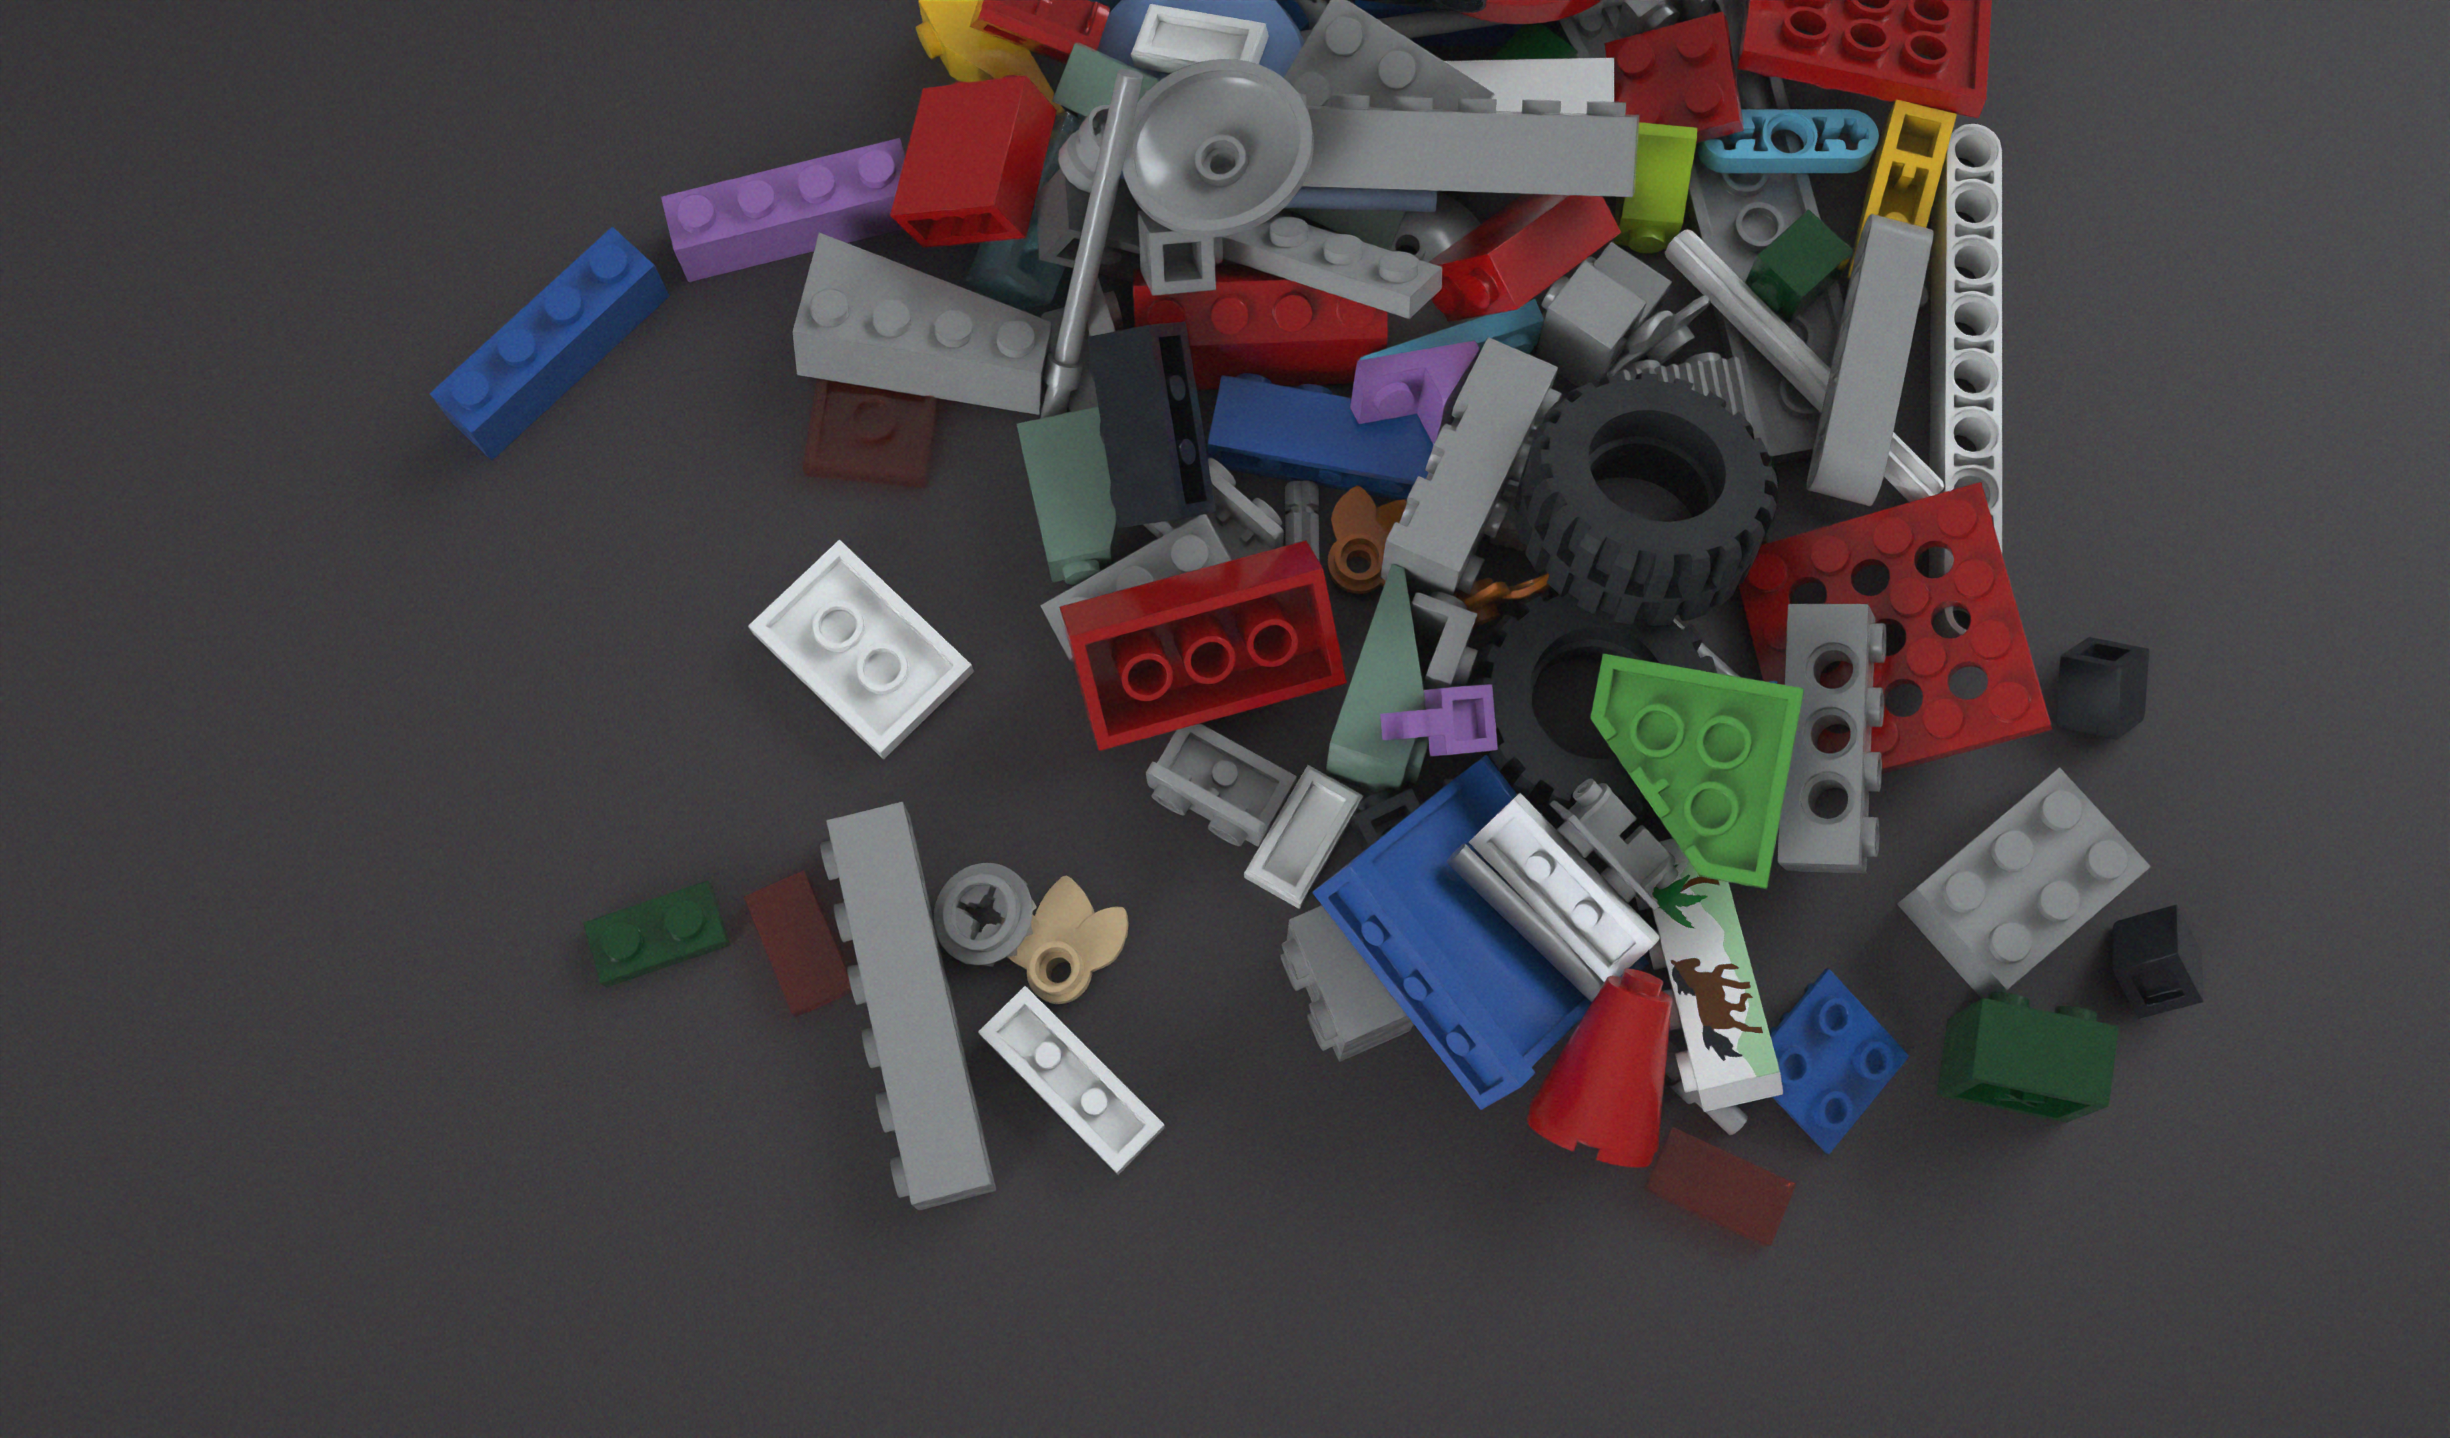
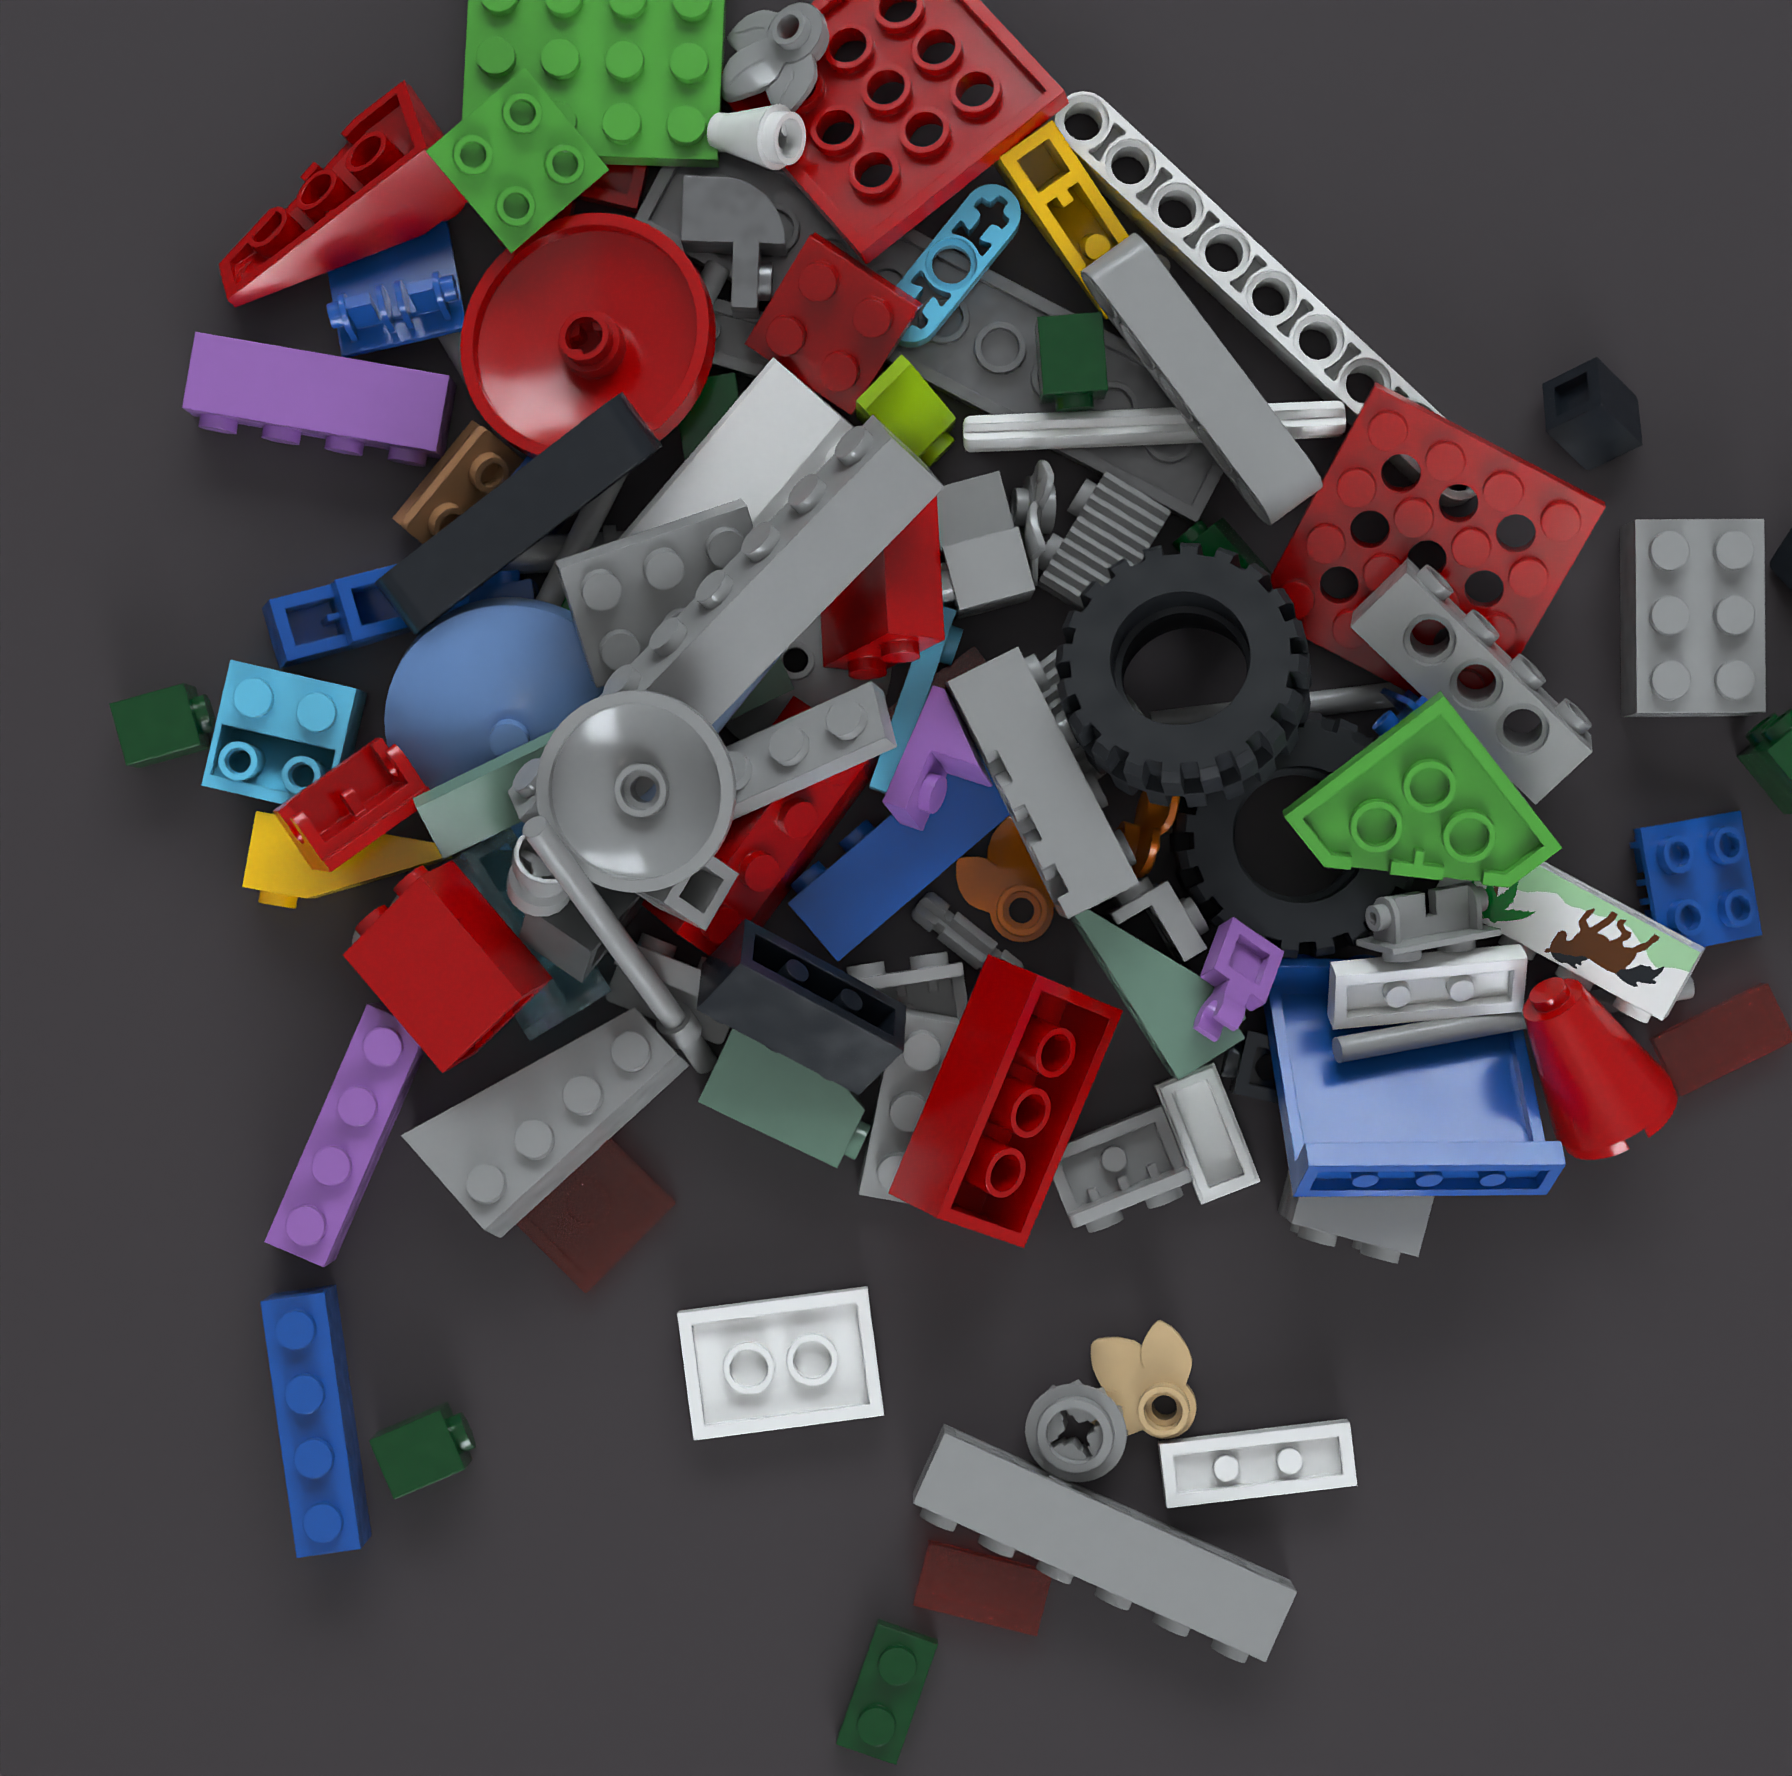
camera: 50 degrees left, 15 degrees up
(586, 436) = (423, 1449): none -> dark green brick
(1182, 37) = (498, 703): white tile -> none

